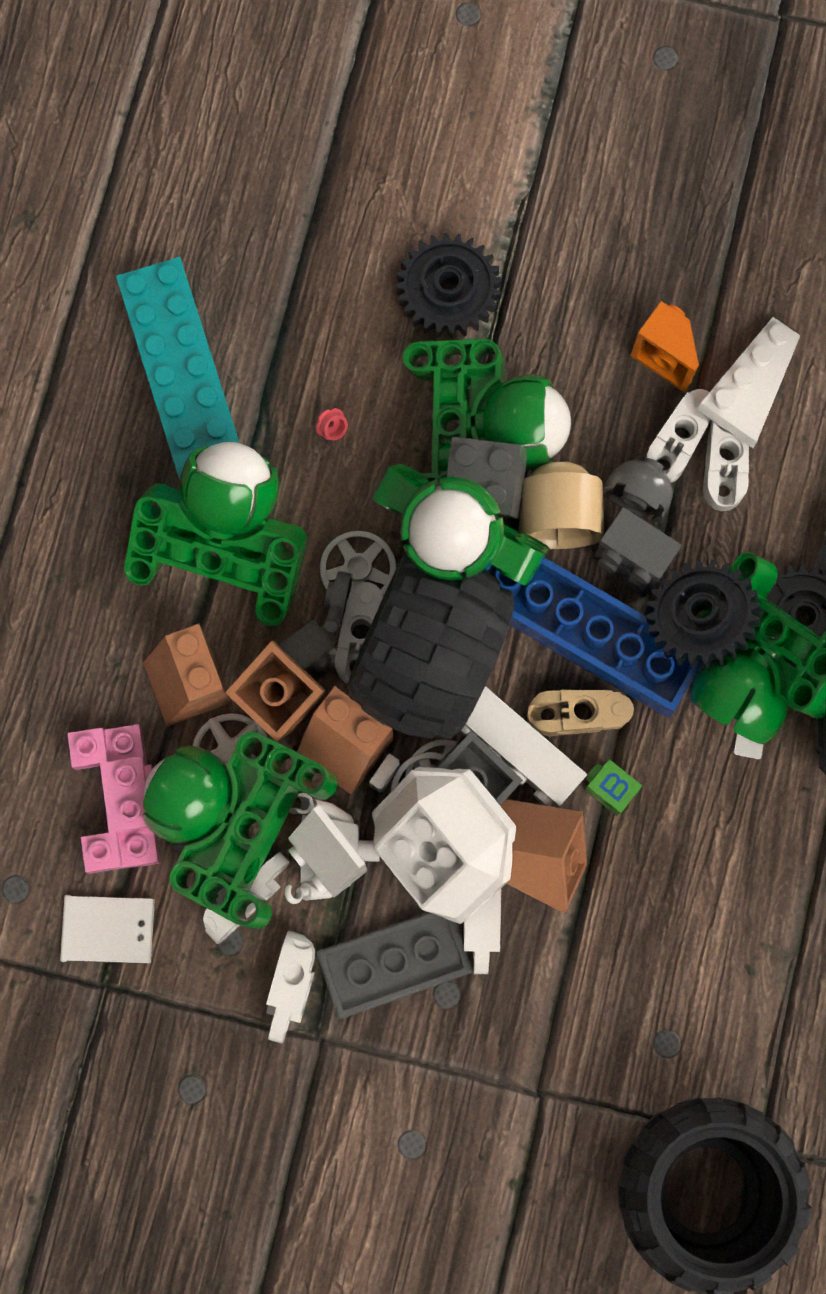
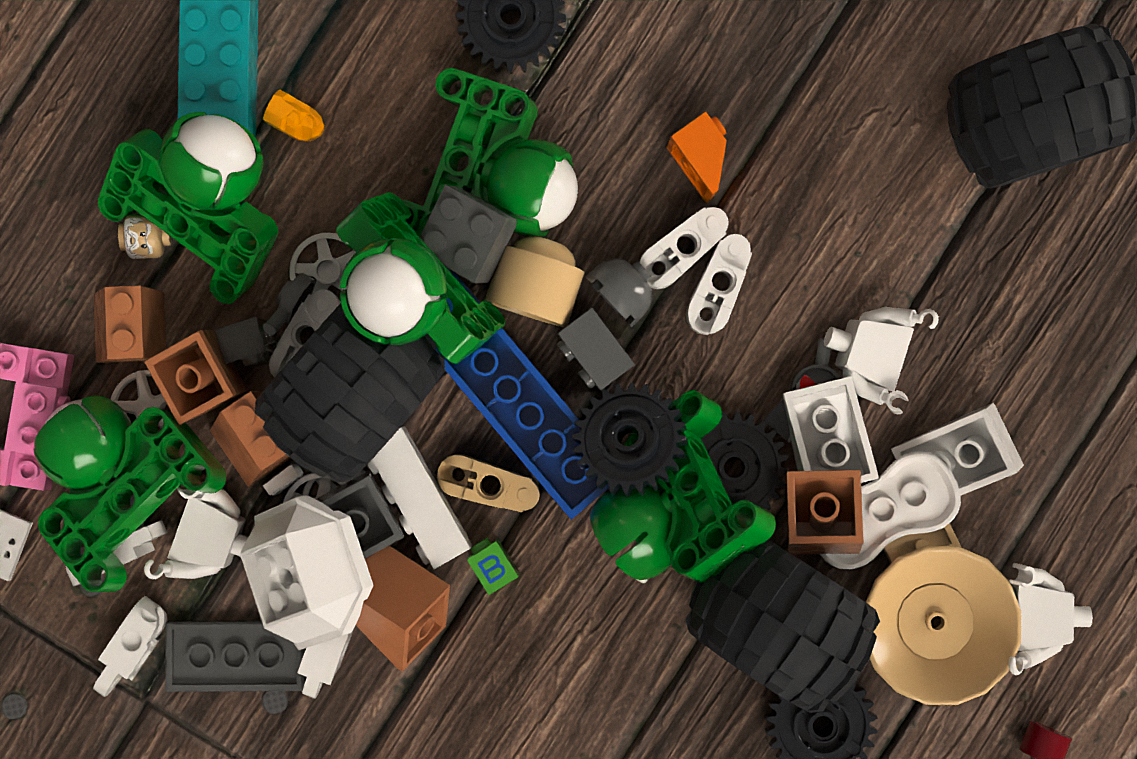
camera: 20 degrees right, 10 degrees up
(176, 590) = (142, 238): none -> tan head
(280, 439) = (293, 117): none -> light orange rock
(326, 852) = (195, 545): white slope -> none
(337, 427) = (348, 127): coral plate -> none
(750, 385) = (767, 222): white wing -> none

